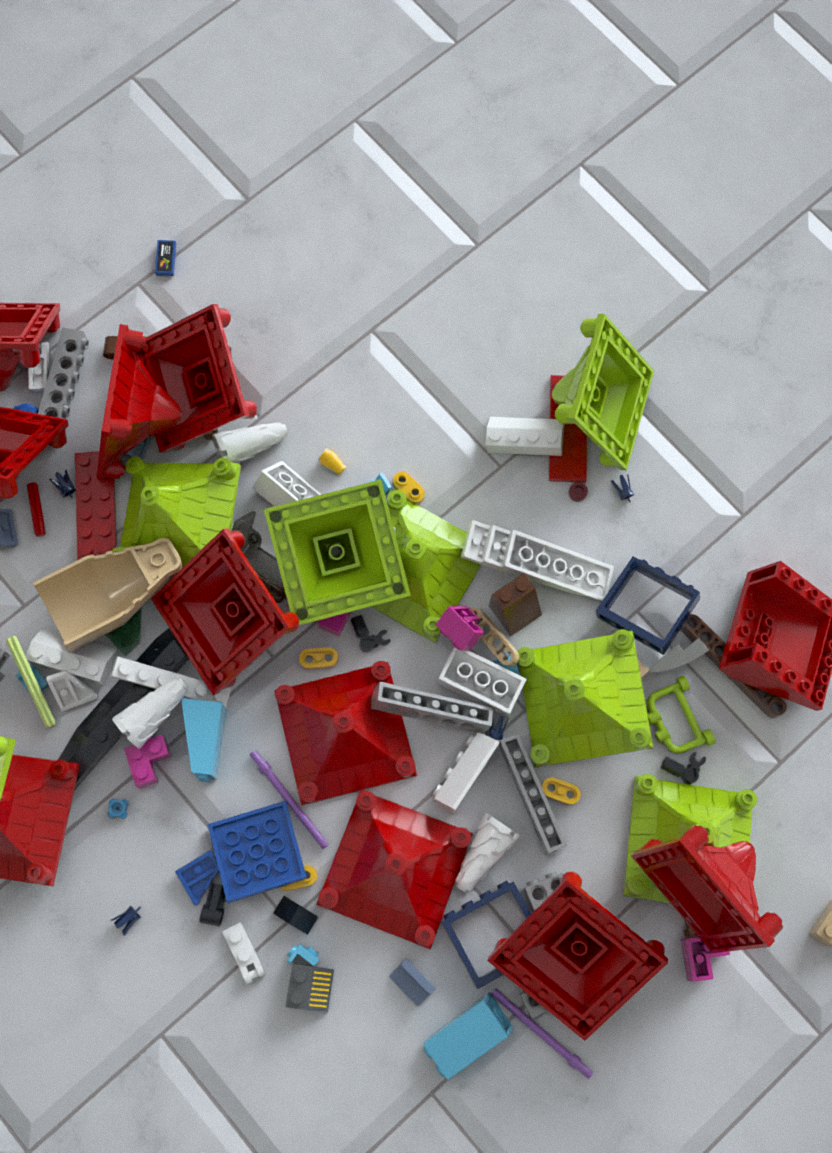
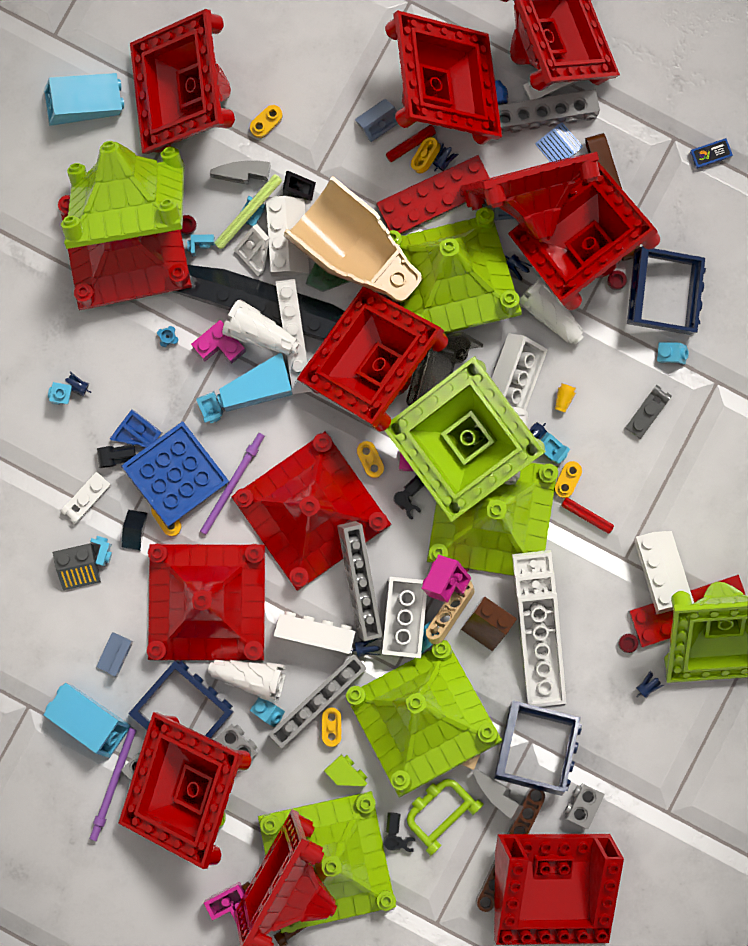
camera: 70 degrees right, 10 degrees up
(20, 747) = (189, 225): none -> dark red tile
(28, 626) = (298, 186): none -> black slope
(39, 738) = (202, 241): none -> medium azure bracket
(53, 501) = (425, 155): none -> yellow plate
(96, 381) = (558, 143): none -> light blue sticker
(128, 939) = (59, 393): none -> medium azure bracket
(189, 457) = (514, 262): none -> dark blue piece
(205, 792) = (210, 407): none -> medium azure bracket
(245, 378) = (617, 280): none -> dark red tile
(265, 360) = (638, 287): none -> dark blue window
(330, 355) = (672, 353): none -> medium azure bracket
(375, 396) = (648, 412): none -> dark grey plate
(448, 483) = (587, 515): none -> red axle
(524, 848) = (267, 711): none -> medium azure bracket
(610, 795) = (344, 773): none -> lime slope
(718, 580) = (589, 808): none -> light grey brick

